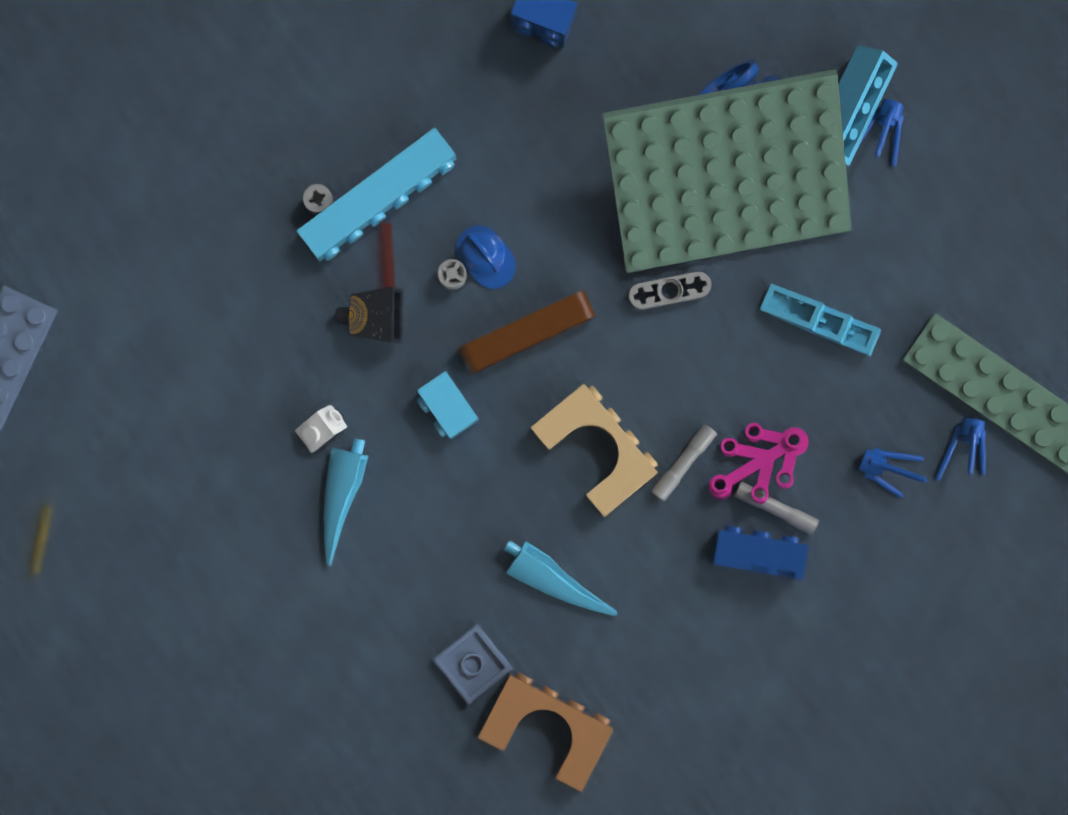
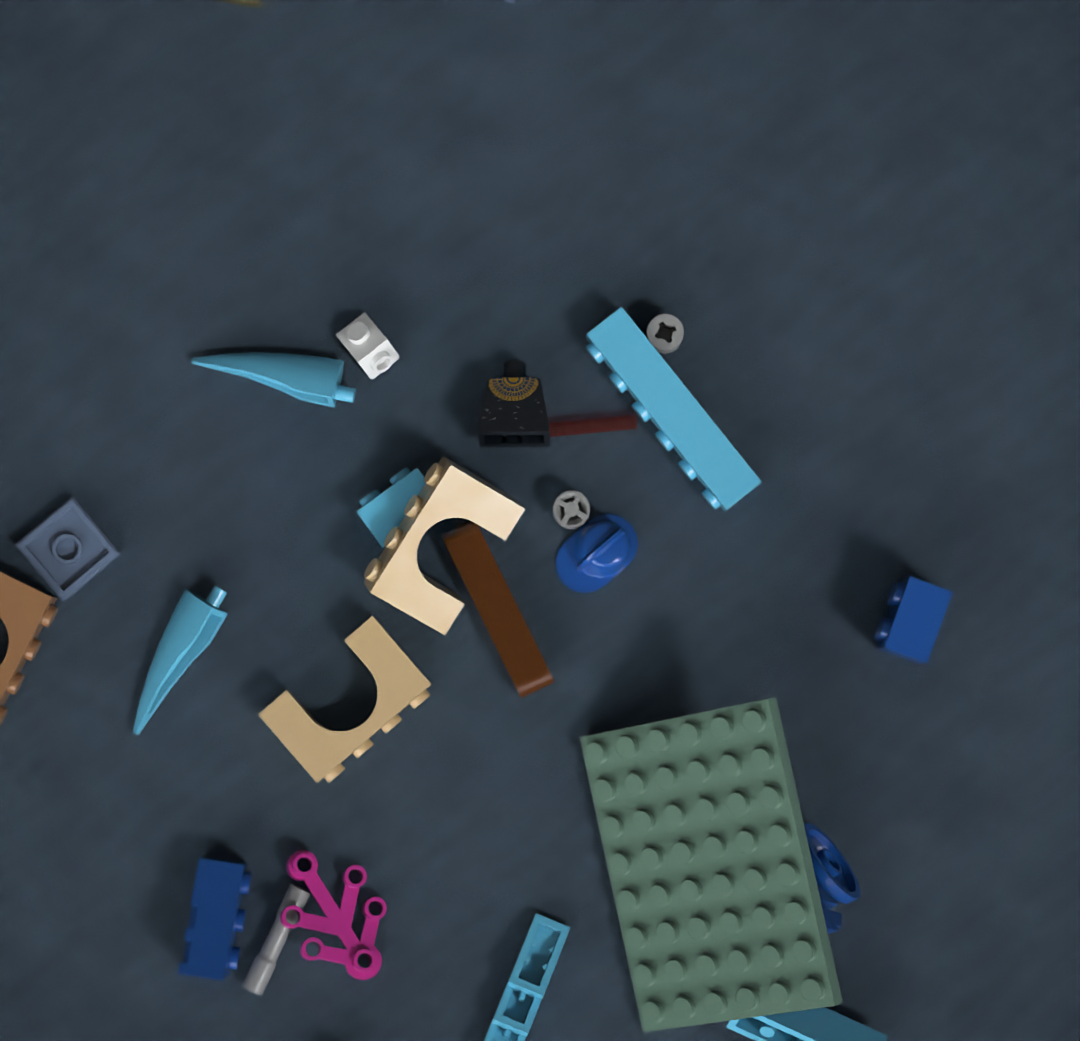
camera: 90 degrees right, 0 degrees up
(439, 367) = (447, 494): none -> tan arch
(689, 279) = (554, 824): light grey beam -> none
(695, 448) = (314, 803): light grey piece -> none

